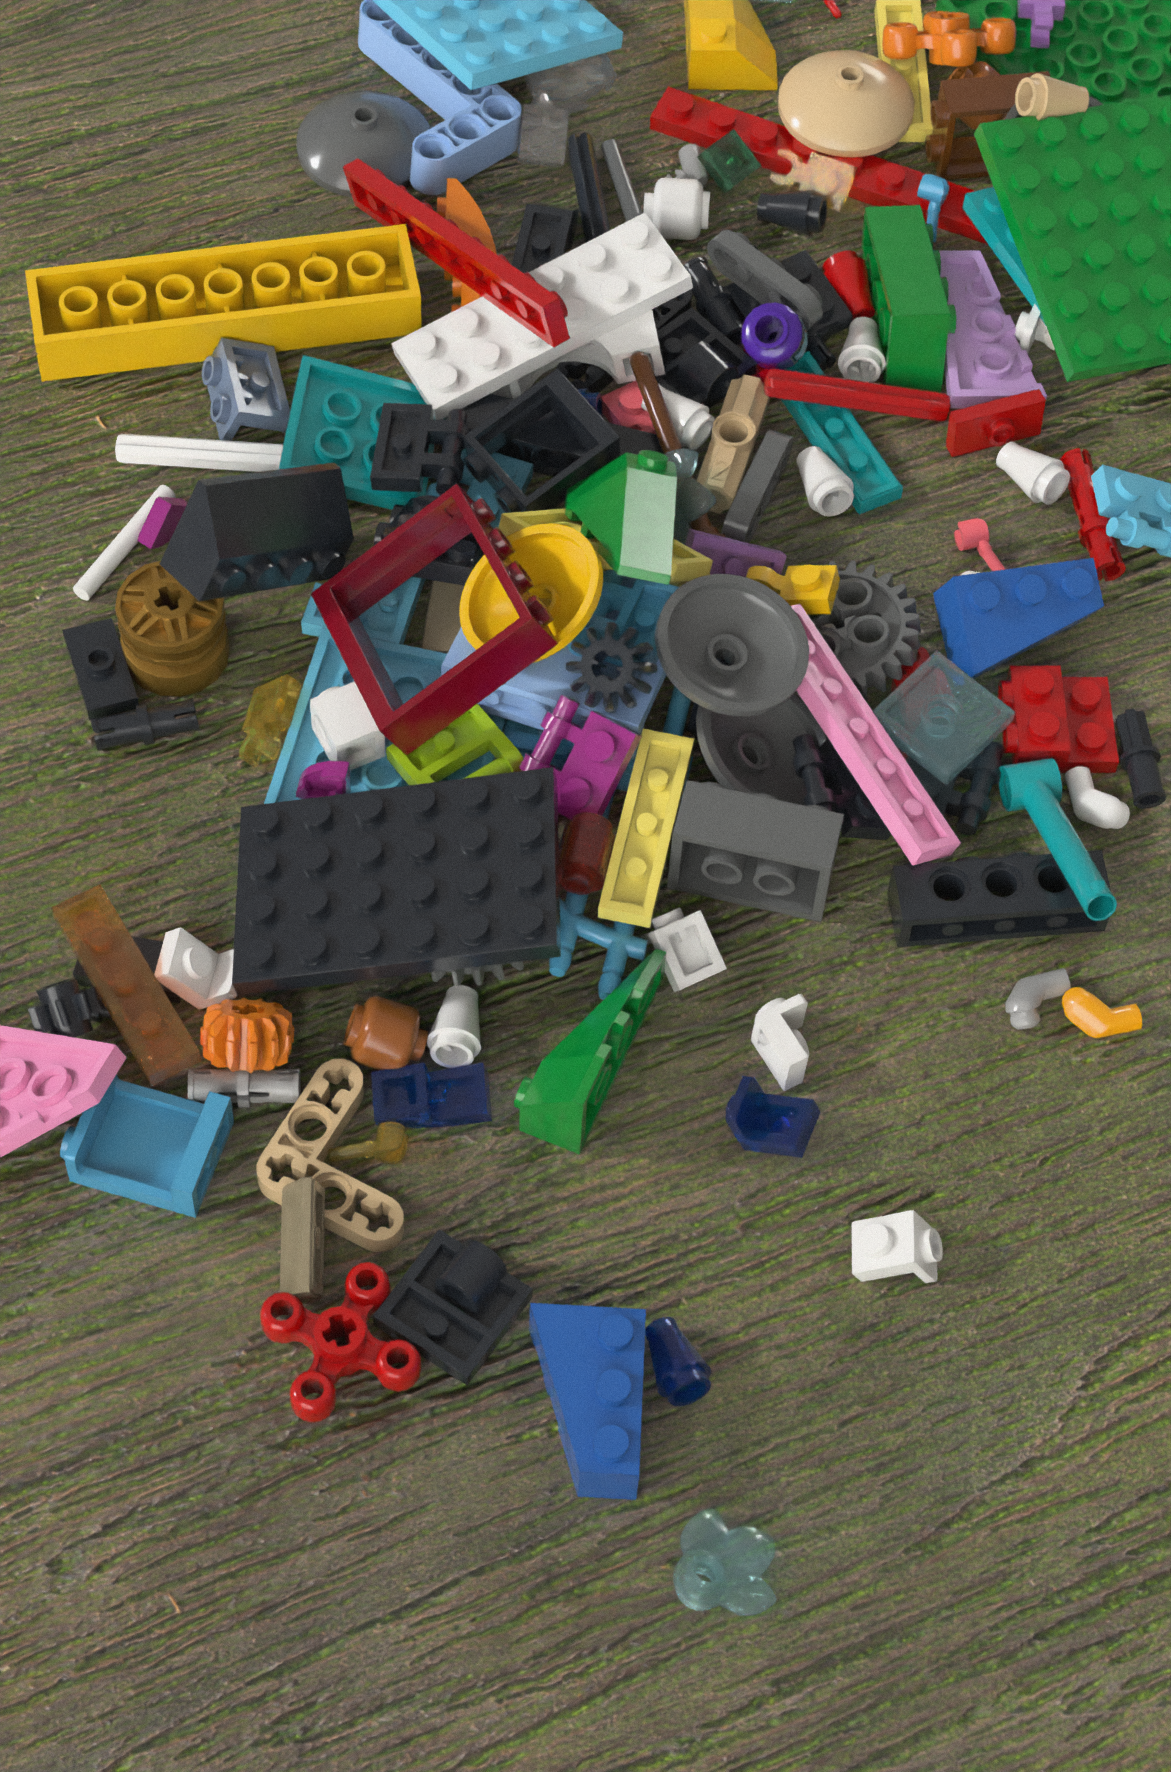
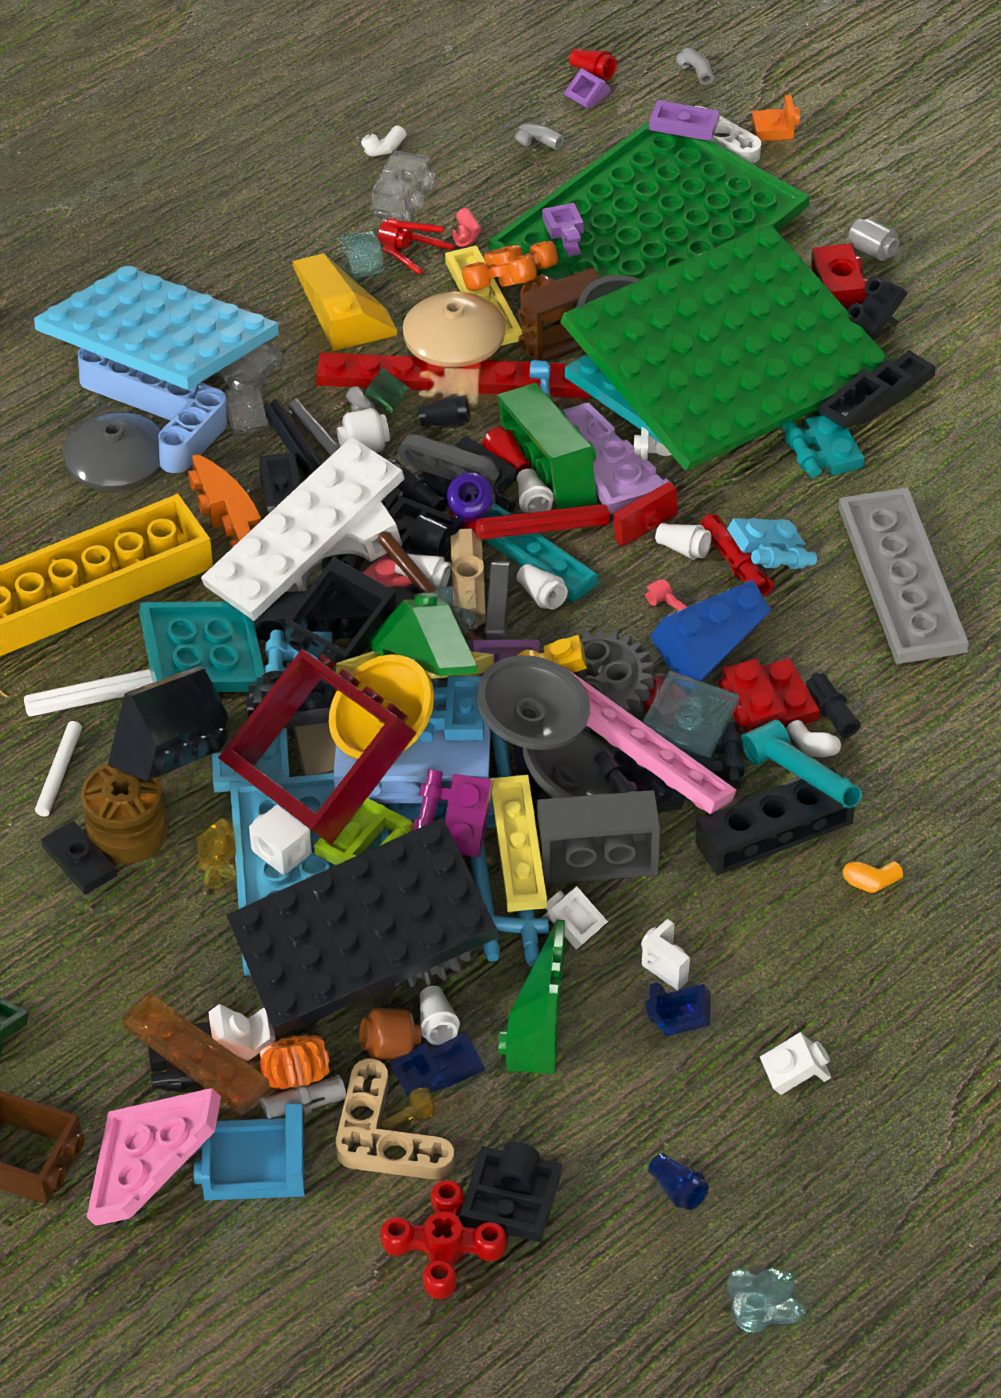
camera: 15 degrees left, 10 degrees down
(65, 1009) = (158, 1082): black gear -> none
(145, 724) = (129, 883): black pin -> none
(161, 521) = (82, 745): magenta tile -> none
(245, 388) = (102, 639): sand blue bracket -> none
(302, 1239) = (387, 1179): dark tan slope -> none
(324, 780) = (278, 878): magenta tile -> none
(403, 446) = (240, 645): black plate -> none
(460, 254) = (227, 500): red plate -> none
(585, 853) = (485, 869): clear red brick -> none
(592, 661) = (458, 726): black gear -> none
(596, 1389) = (633, 1213): blue wedge -> none
(1029, 994) = (820, 876): light grey arm -> none
(1049, 97) = (604, 283): tan cone -> none

